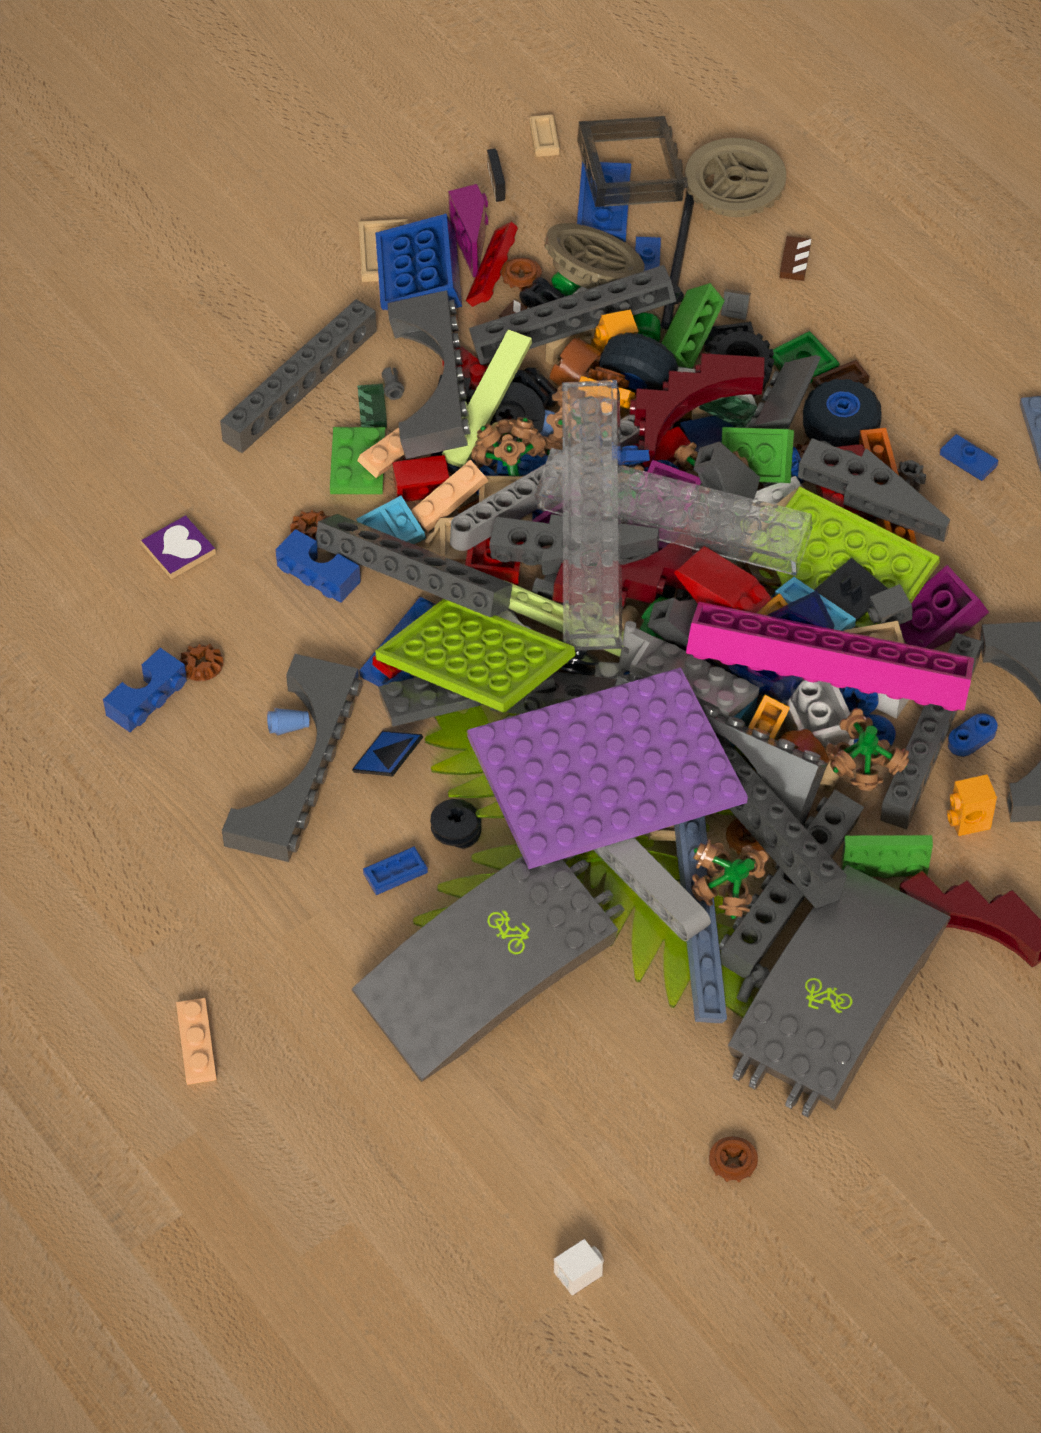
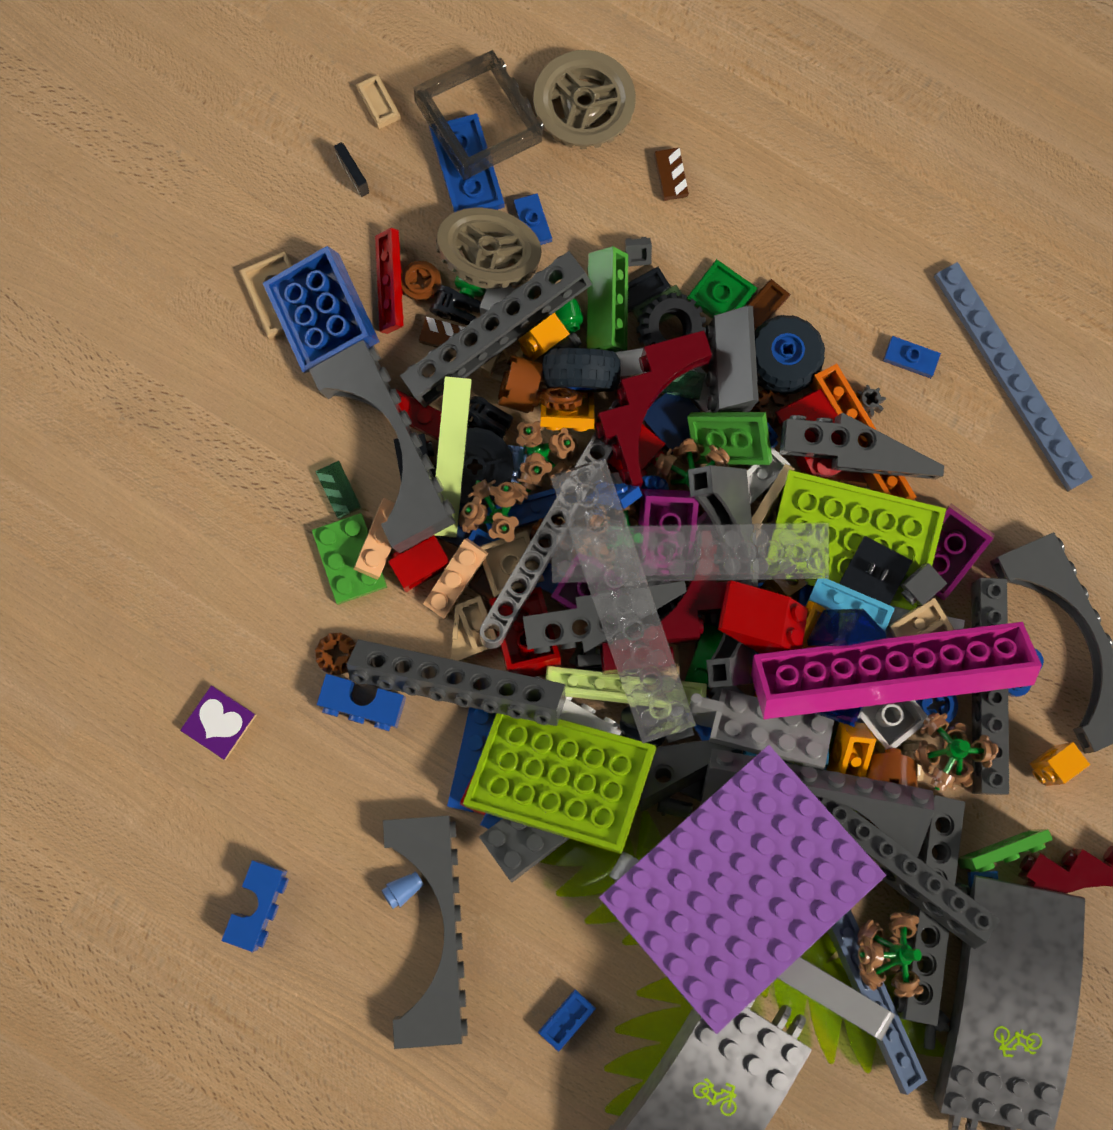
camera: 25 degrees left, 25 degrees up
(204, 670) = (302, 858): dark orange gear -> none
(298, 376) = (255, 482): dark grey brick -> none
(387, 753) = (510, 901): piece -> none
(393, 387) = (348, 458): dark grey pin -> none
(396, 520) = (414, 624): medium azure wing -> none
(456, 823) = (588, 947): black piece -> none
(469, 222) = (347, 237): magenta slope -> none
(678, 260) = (562, 205): black piece -> none

